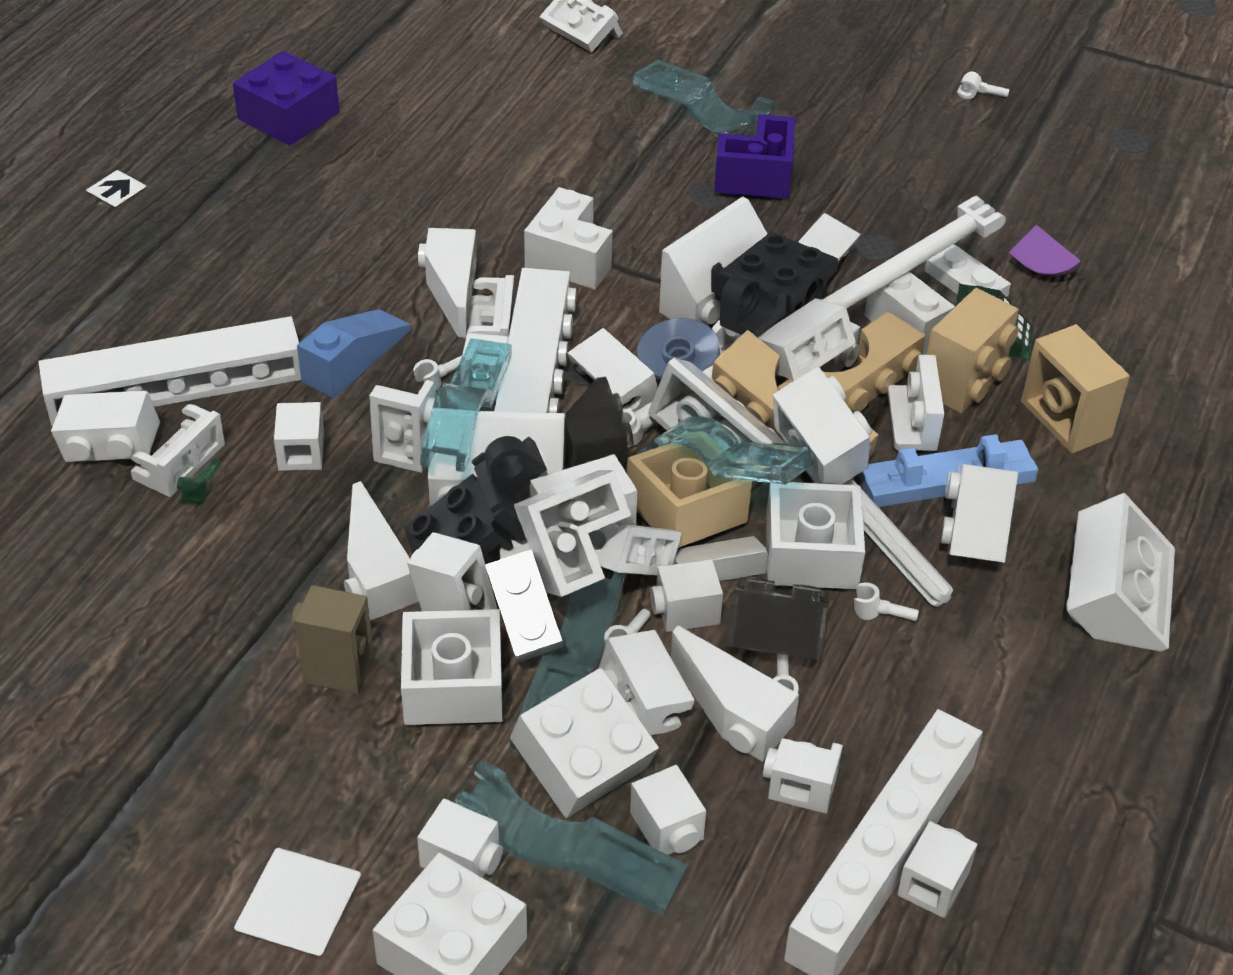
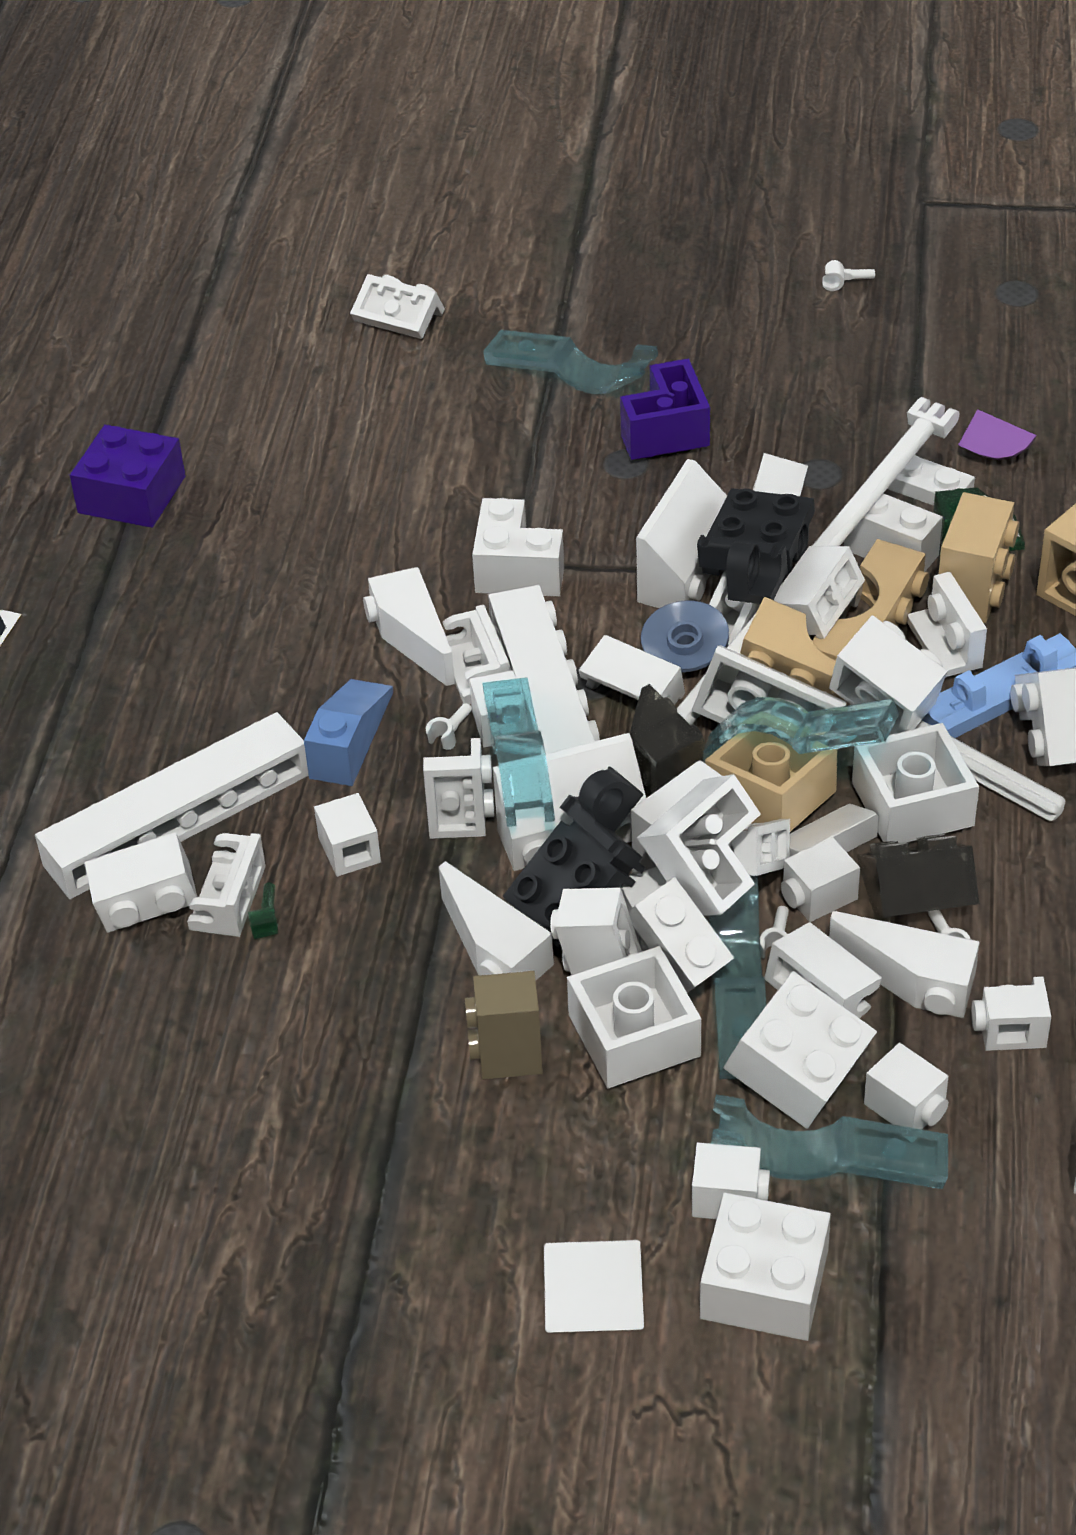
camera: 15 degrees left, 0 degrees up
(869, 604) = (992, 836): white hand -> none

